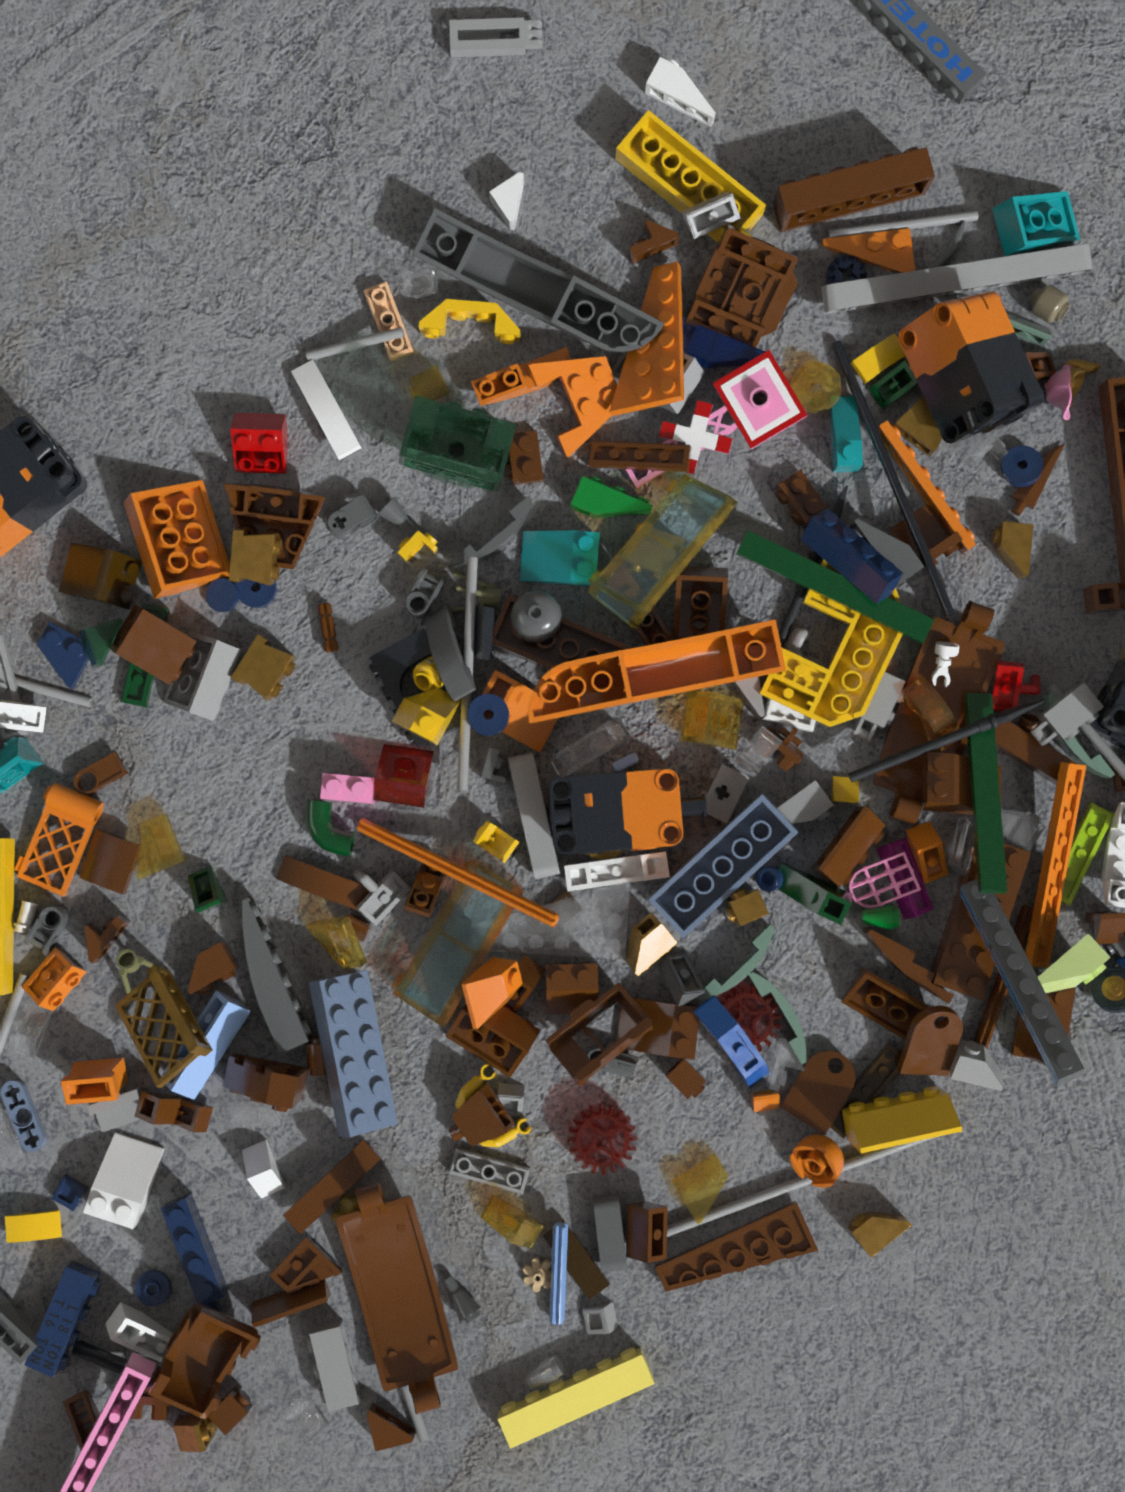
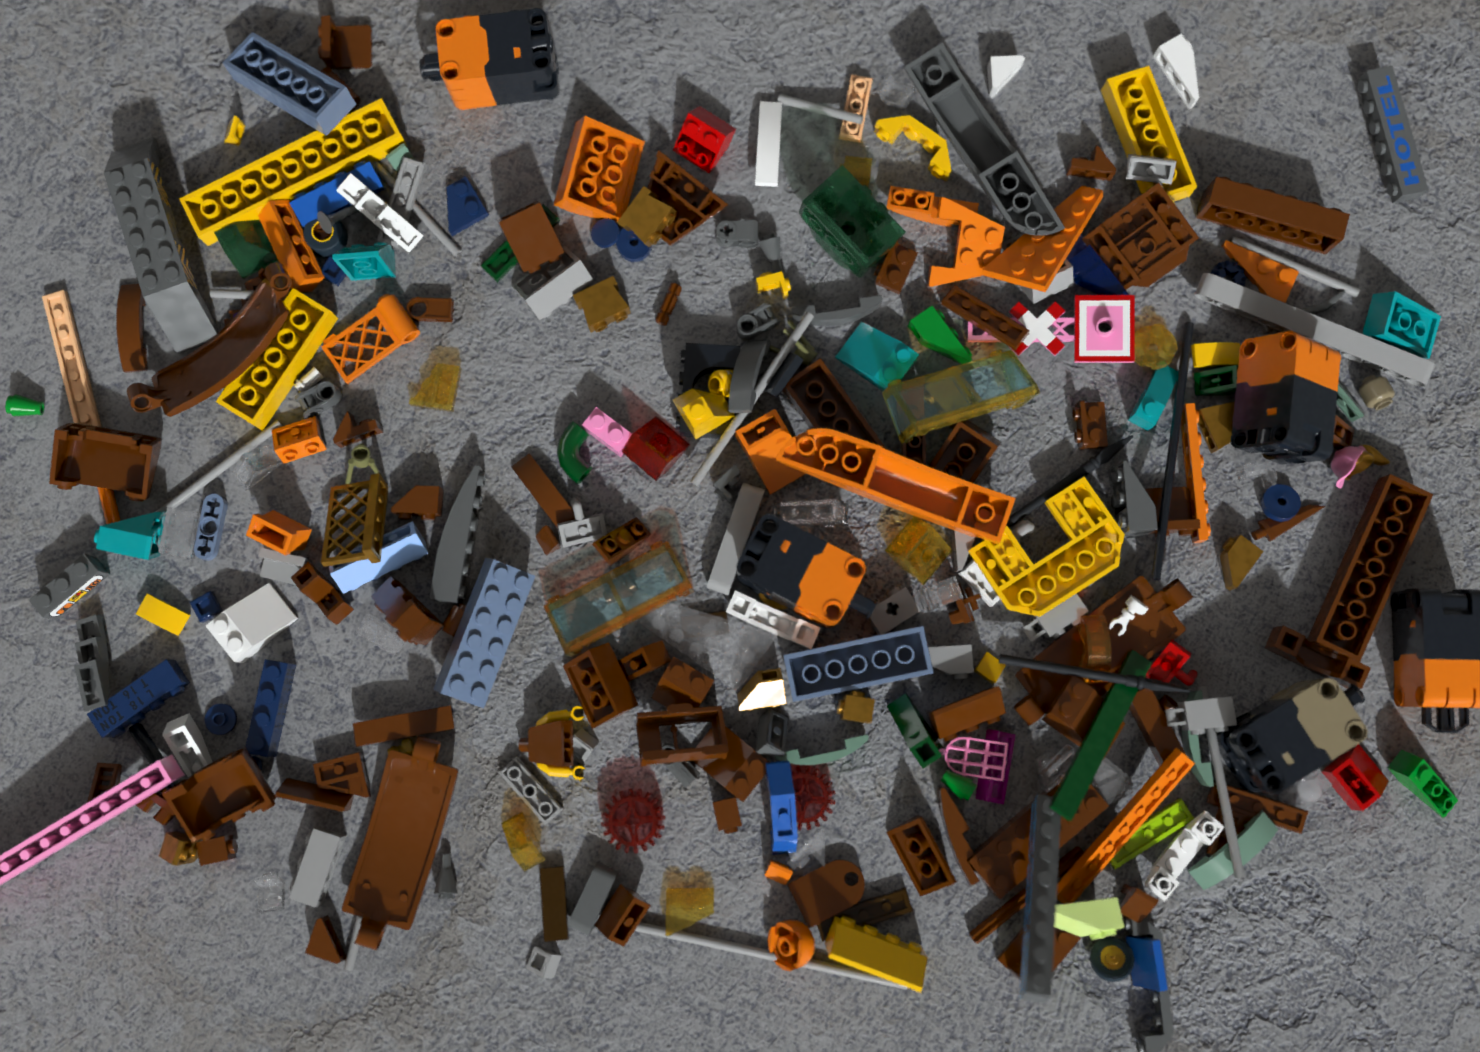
camera: 35 degrees right, 5 degrees down
(99, 575) = (525, 164): dark brown piece -> none
(99, 640) = (493, 209): slope -> none
(110, 861) = (397, 378): reddish brown slope -> none
(206, 889) = (453, 443): dark green slope -> none
(262, 1169) = (360, 680): white slope -> none
(339, 941) = (528, 542): clear yellow wing -> none
(458, 872) = (651, 544): orange axle -> none
(476, 714) = (745, 428): dark blue piece -> none
(490, 988) = (619, 647): orange slope -> none
(495, 841) = (694, 539): yellow bracket -> none
(536, 616) = (831, 386): dark grey cylinder -> none
(538, 1269) = (522, 896): tan plant -> none
(546, 1372) = (475, 977): clear cone -> none
(558, 1273) = (533, 904): medium blue axle -> none
(575, 1397) = (485, 1011): light yellow brick -> none
(625, 762) = (834, 540): light blue tile -> none
(756, 1243) = (705, 981): reddish brown wing -> none
(769, 878) = (888, 700): dark blue tile -> none
(797, 1040) = (832, 840): sand green slope -> none
(833, 586) = (1077, 504): dark green tile -> none
(851, 556) = (1105, 487): dark blue brick -> none
(877, 1230) = (804, 1031): pearl gold slope -> none
(927, 851) = (1026, 755): orange slope -> none
(931, 1044) = (936, 909): reddish brown tile -> none
(975, 1066) = (962, 948): light grey slope -> none

